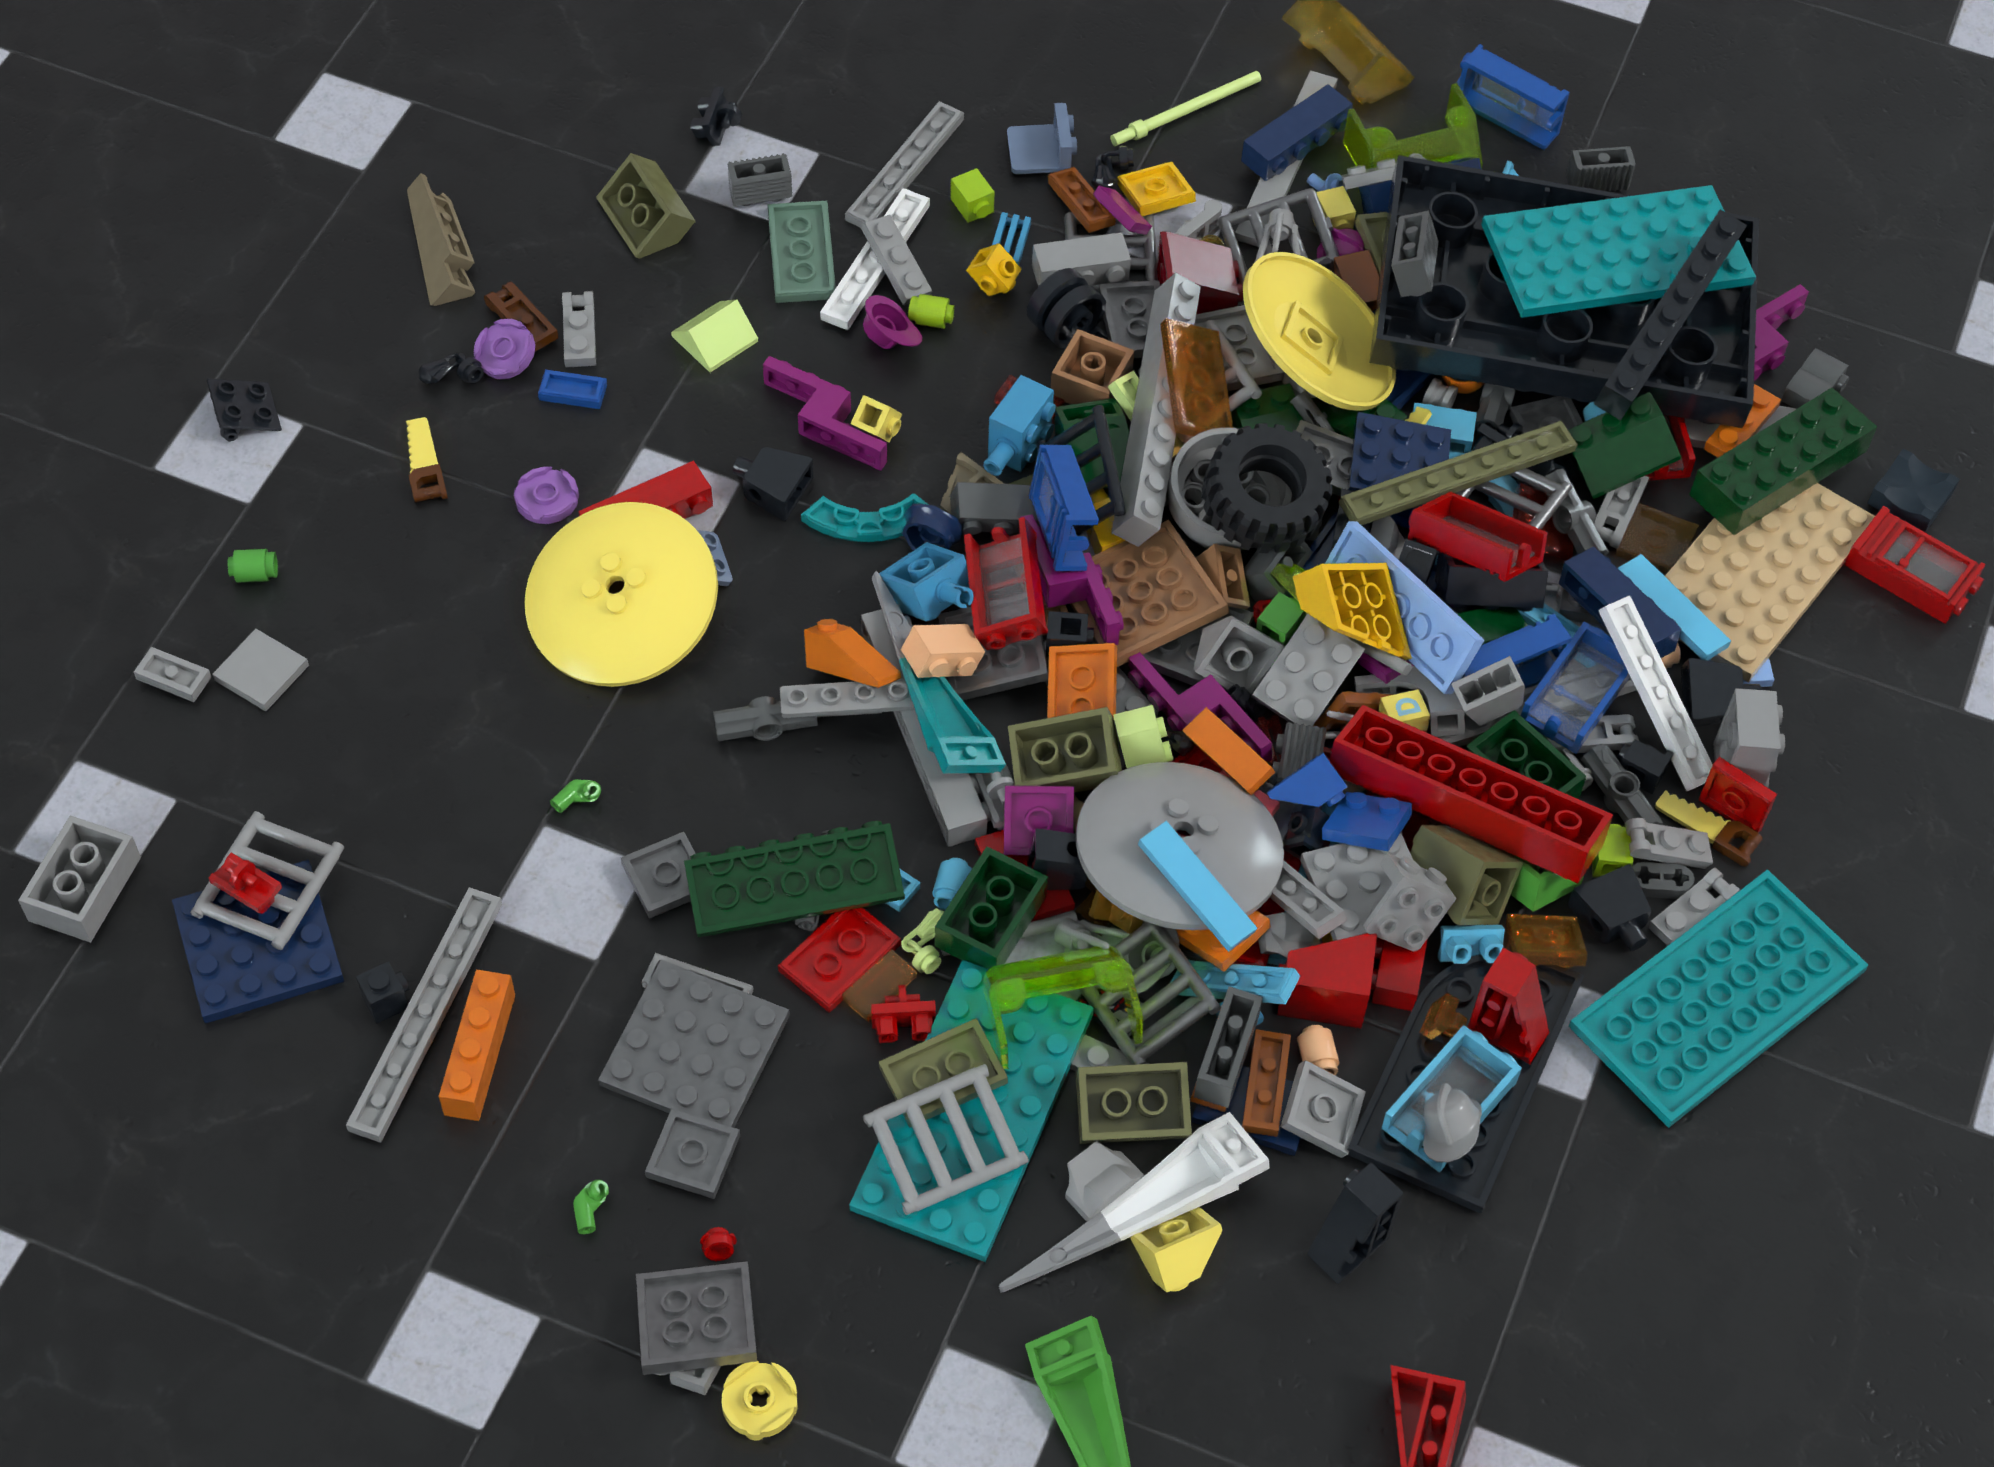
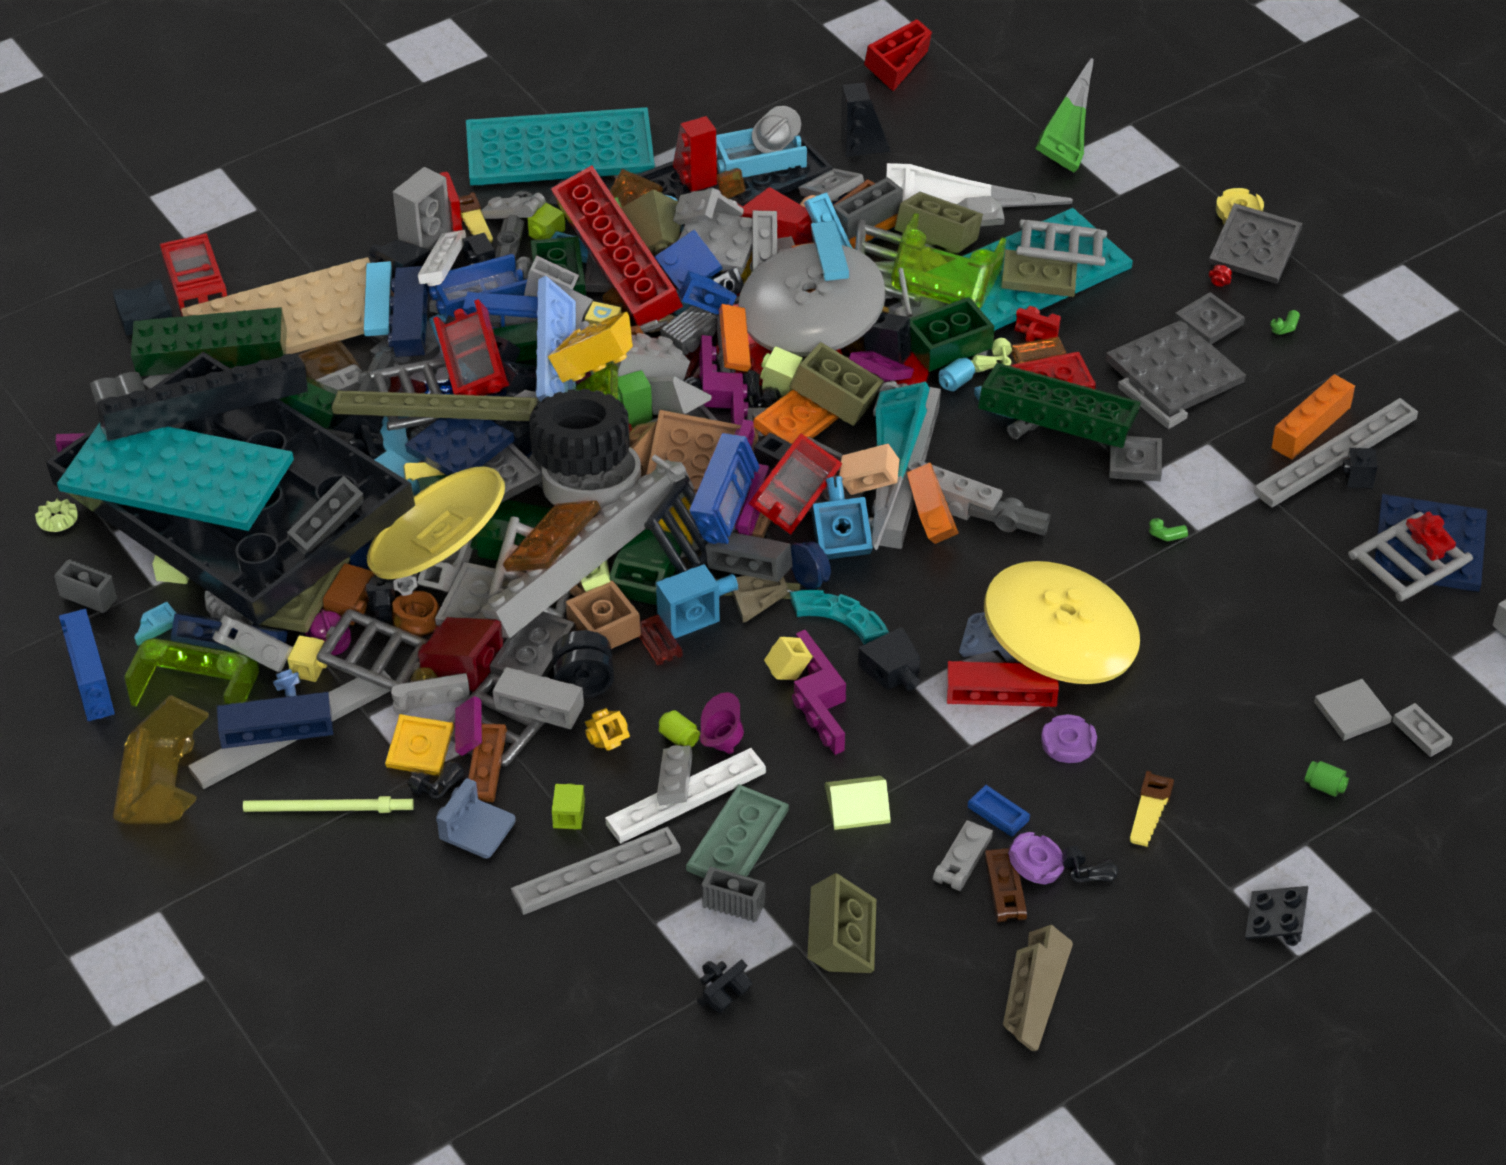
camera: 145 degrees left, 10 degrees down
(1014, 223) = (563, 763): dark azure tile -> none
(1128, 492) = (674, 473): none -> light grey hand
(1178, 1248) = (962, 162): light yellow slope -> none
(1279, 228) = (372, 637): light grey plant -> none
(1692, 907) = (507, 187): light grey plate -> none

